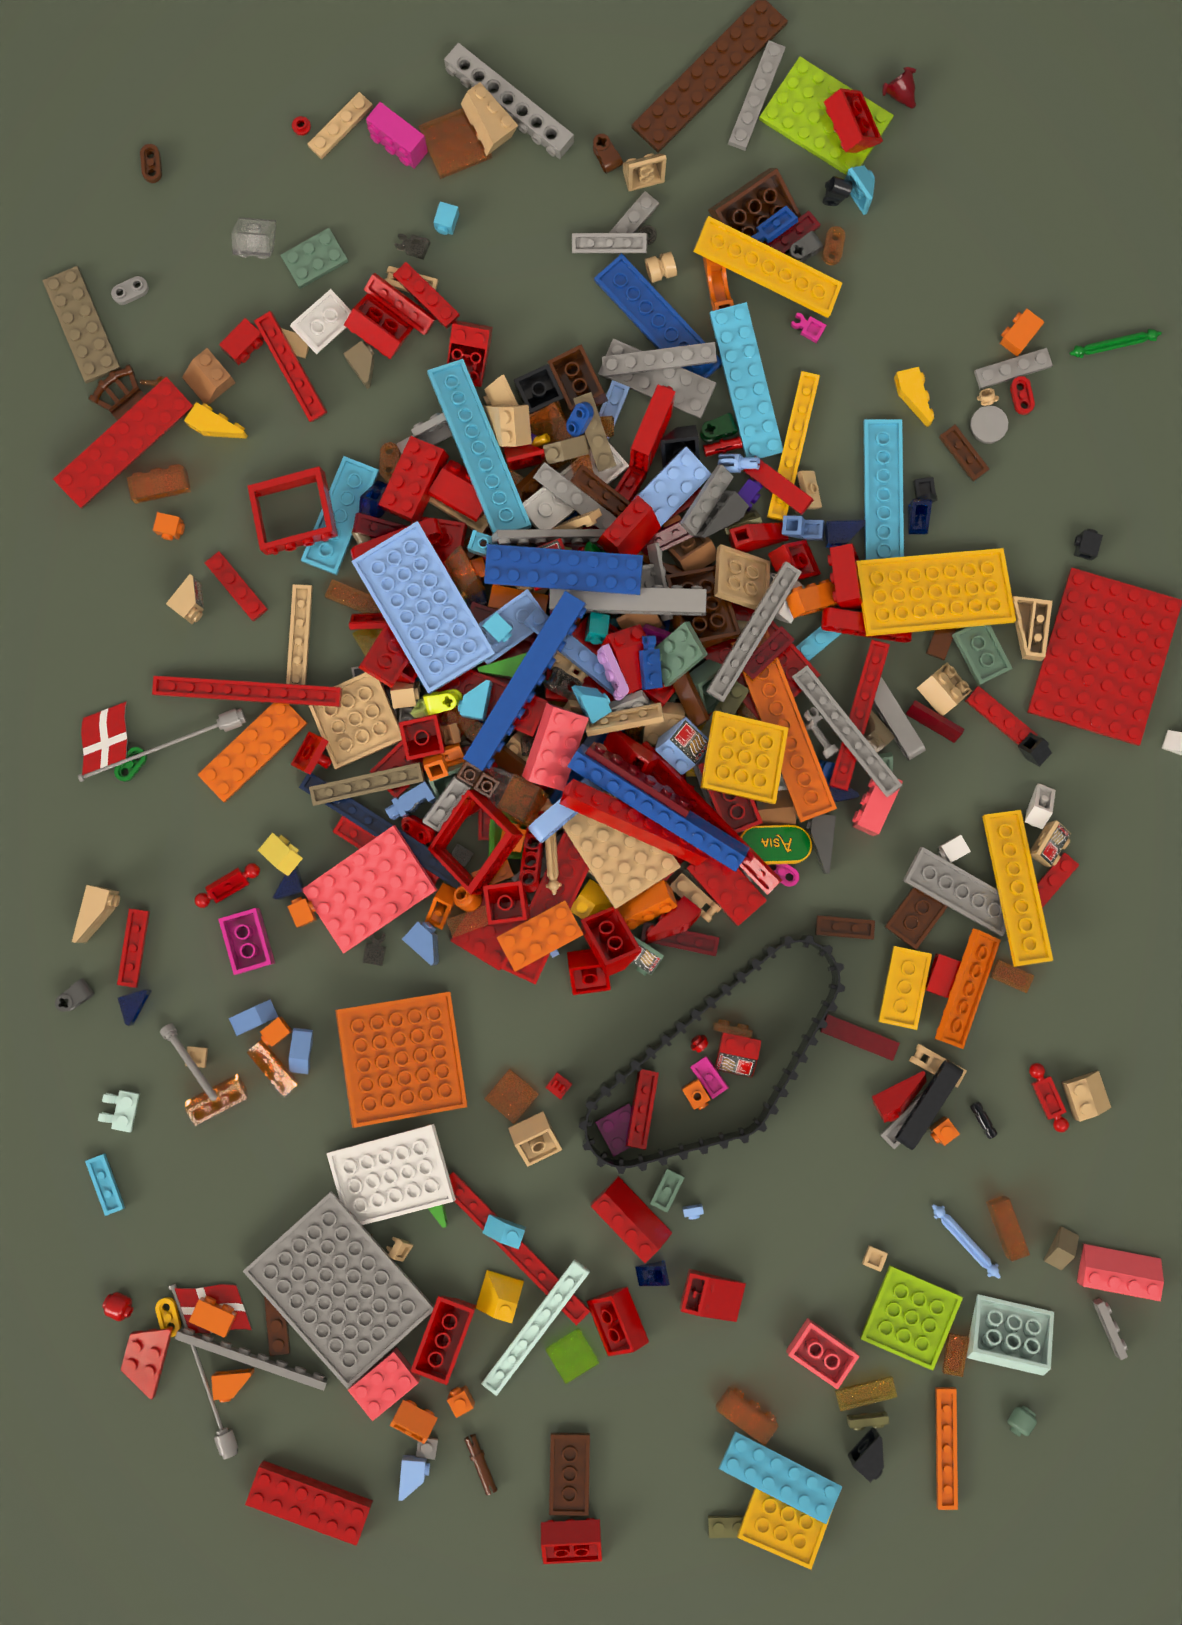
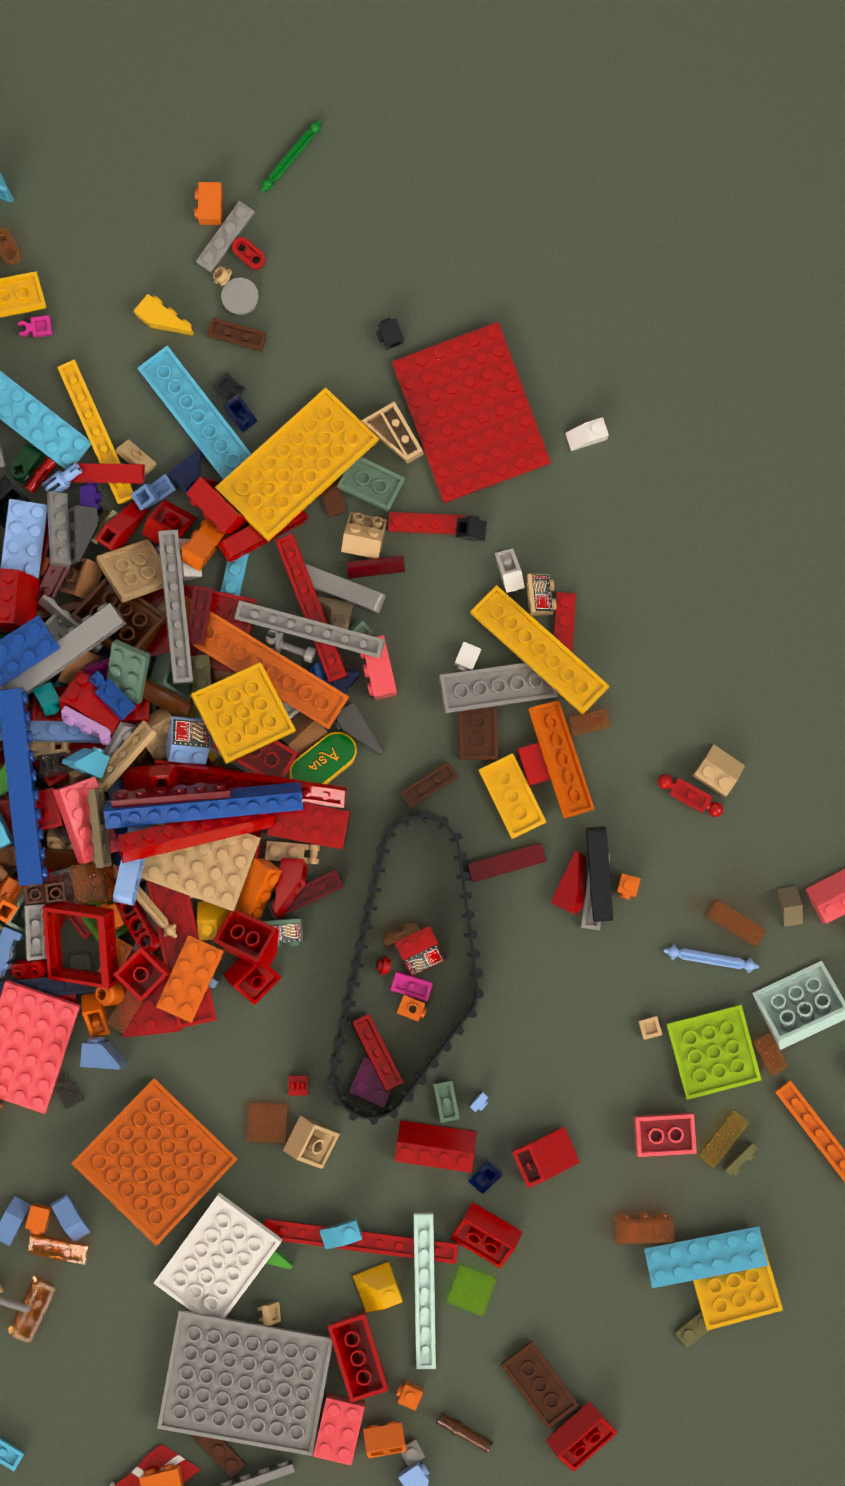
camera: 40 degrees left, 0 degrees up
(559, 765) = (99, 834): none -> dark tan plate
(783, 869) = (345, 779): dark pink plate -> none
(868, 1455) = (760, 1187): black slope -> none
(932, 1063) = (579, 838): tan plate -> none
(983, 1120) = (653, 852): black axle -> none

